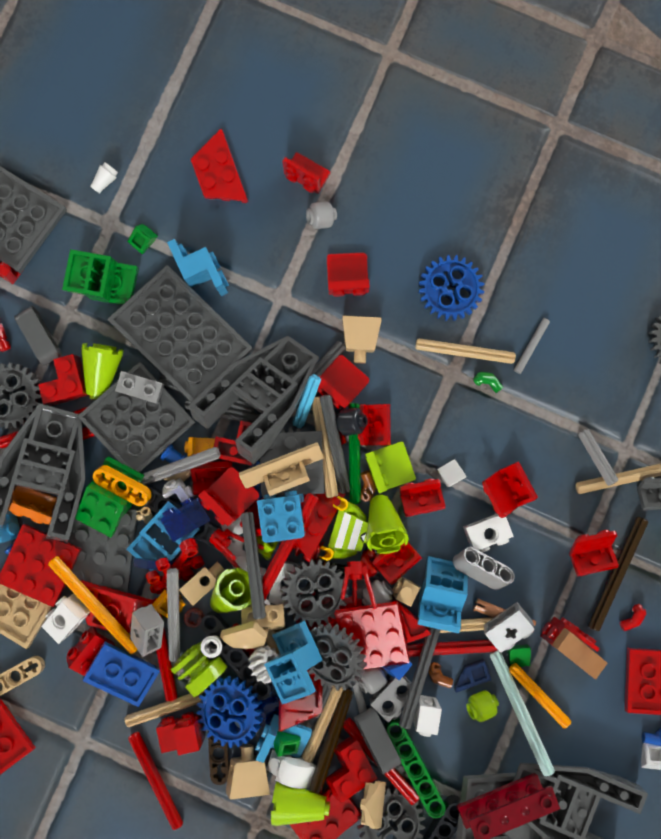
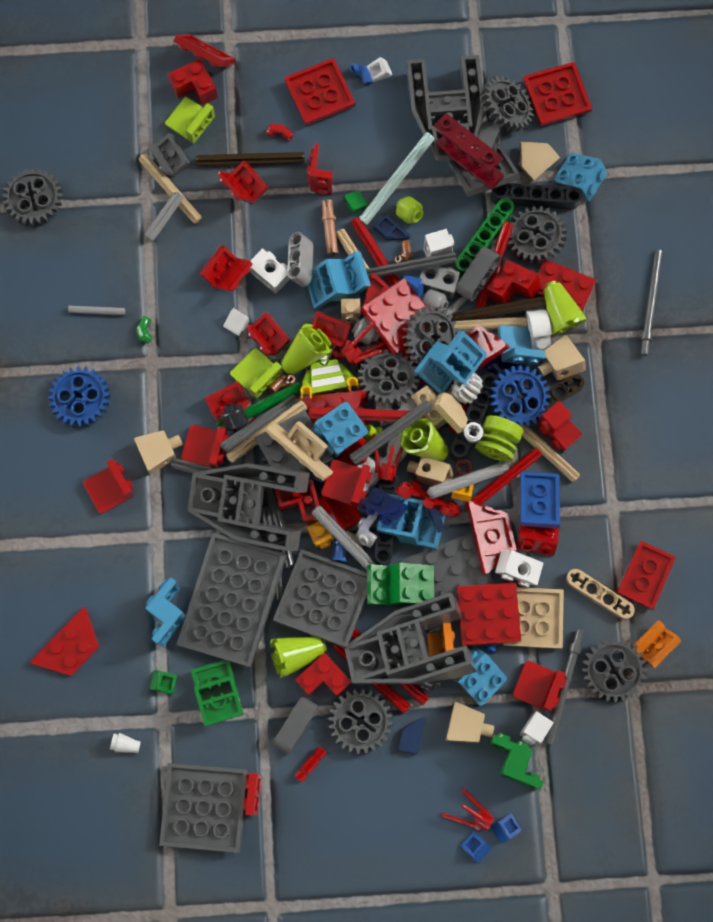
camera: 120 degrees left, 10 degrees down
(92, 604) = (495, 549): light orange axle -> none
(114, 488) = (390, 590): light orange beam -> none
(139, 387) = (294, 603): light grey brick -> none
(144, 514) = (400, 550): tan arm -> none
(146, 630) = (490, 494): light grey brick -> none
(155, 780) = (609, 431): red axle -> none
(286, 744) = (520, 340): green slope -> none
(305, 172) = (34, 567): red bracket -> none
(306, 400) = (221, 462): medium azure axle -> none
(321, 215) = (67, 535): light grey head -> none
(373, 804) = (526, 252): tan slope -> none
(465, 351) = (127, 360): tan axle -> none
(509, 627) = (339, 225): brick -> none
(542, 698) = (377, 172): light orange axle -> none
(579, 653) = (327, 156): medium nougat tile -> none

